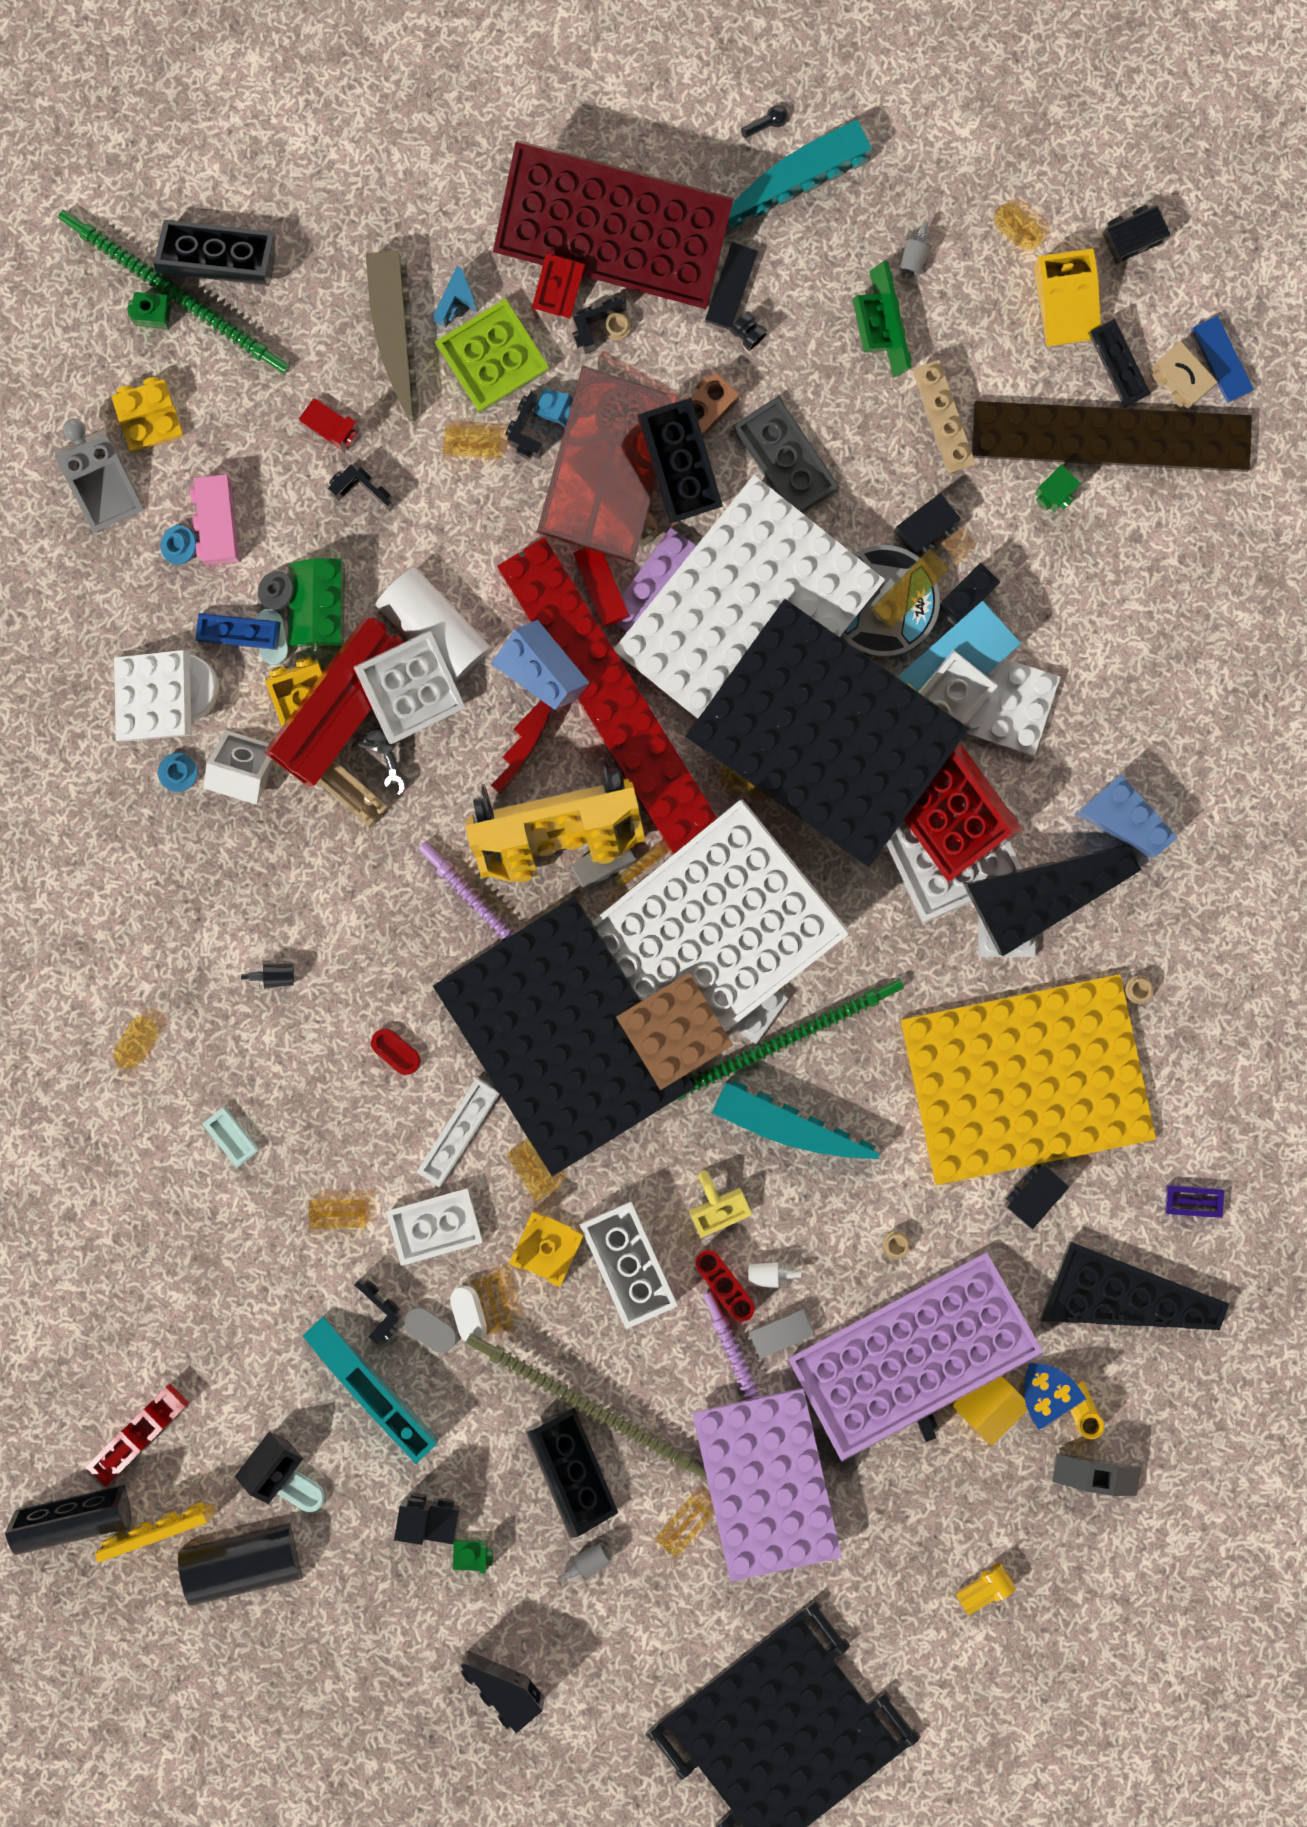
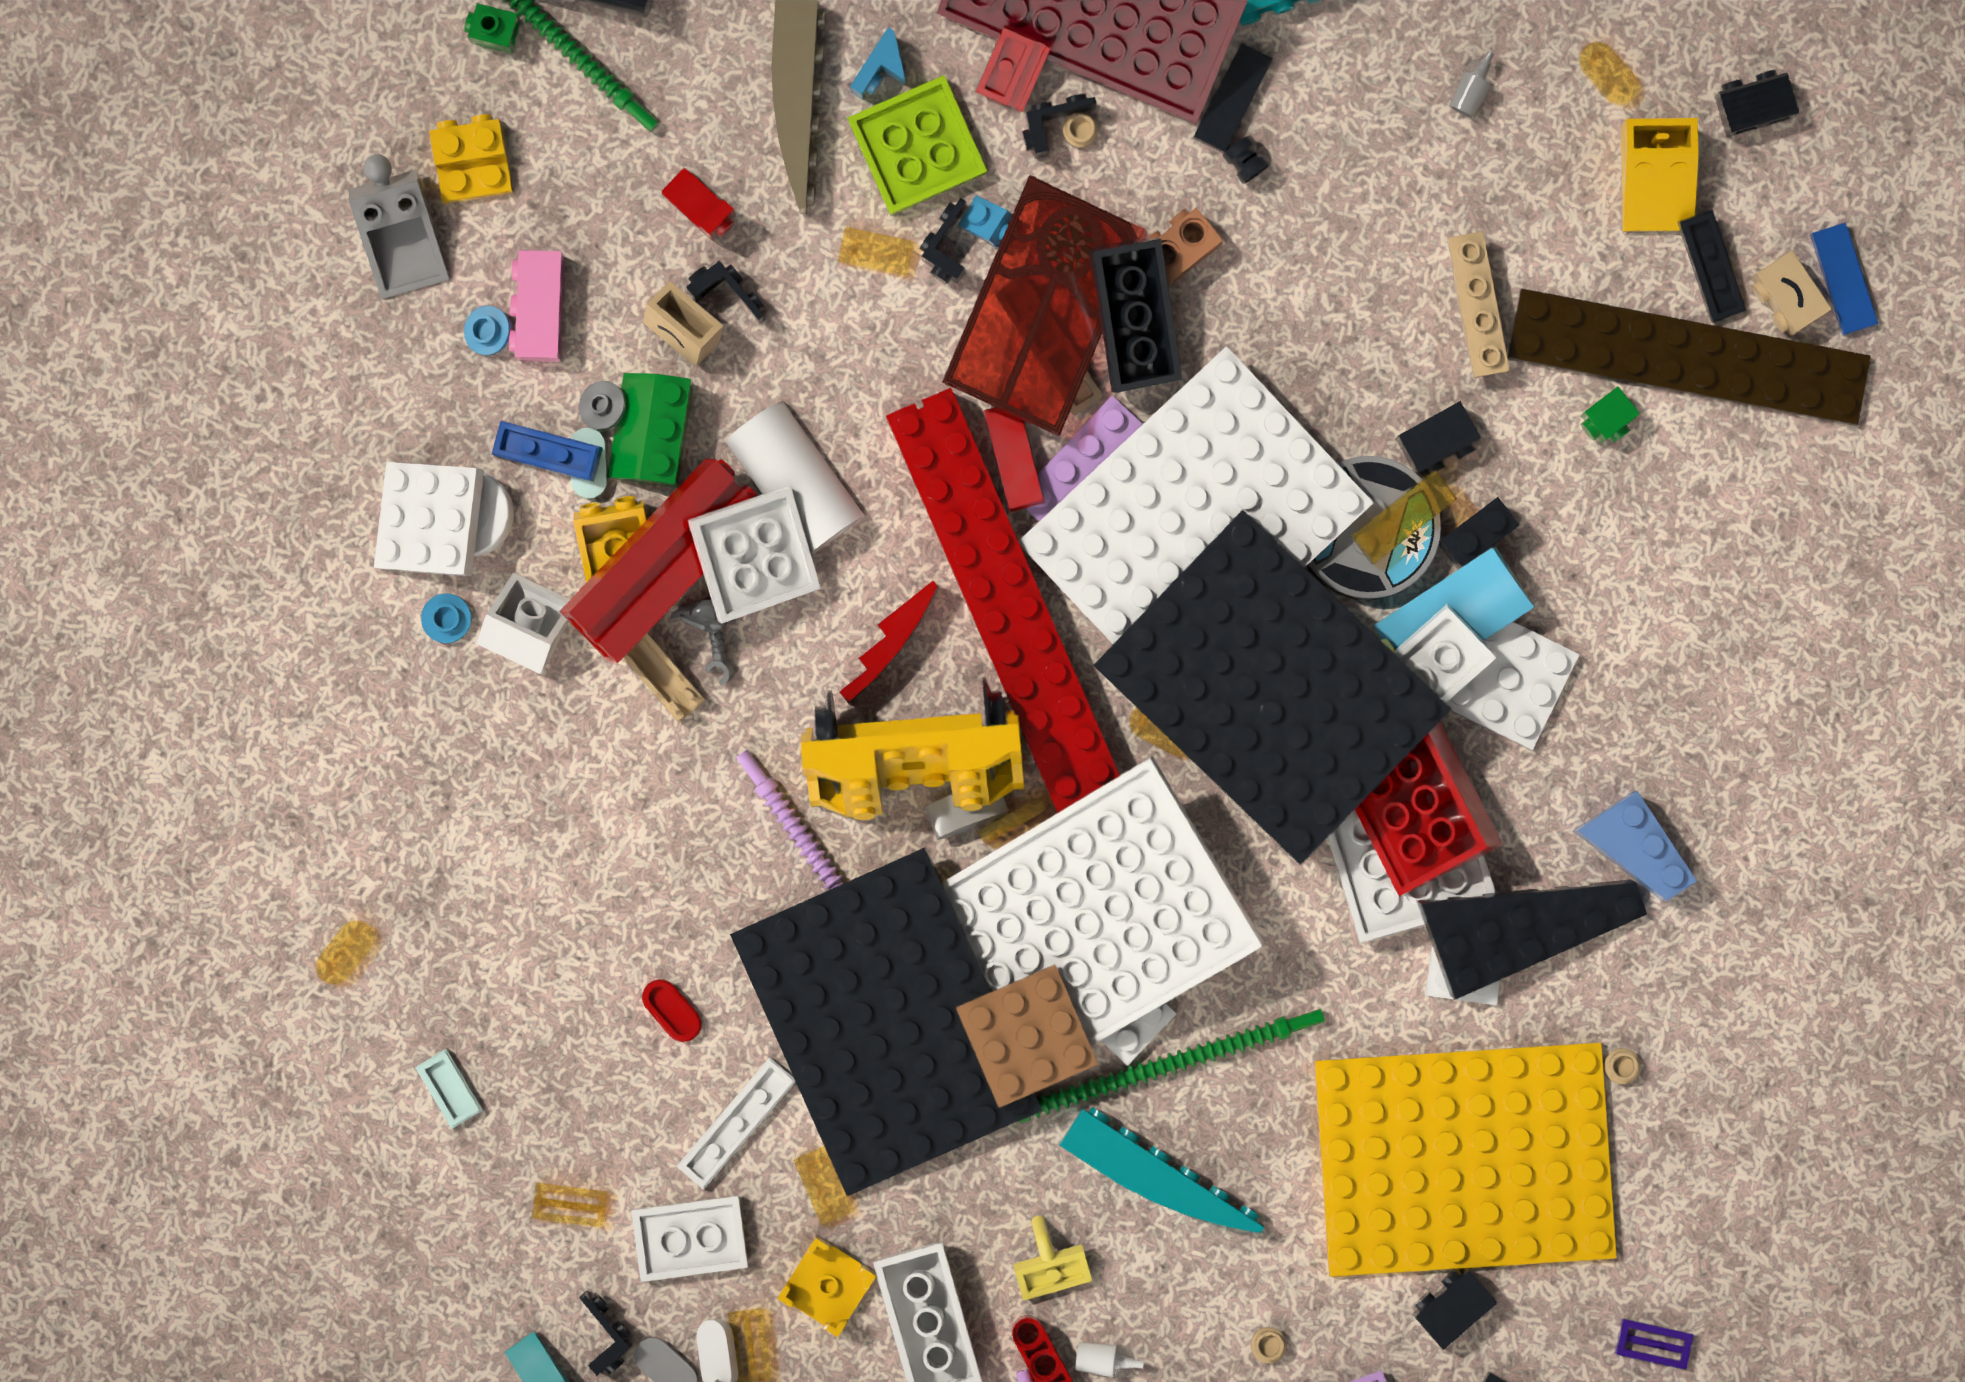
camera: 15 degrees right, 0 degrees up
(270, 975) = (527, 892): black piece -> none
(329, 517) = (682, 323): none -> tan brick
(540, 666) = (923, 551): medium blue wedge -> none
(785, 455) = (1271, 324): dark grey tile -> none
(881, 320) = (1416, 170): green bracket -> none

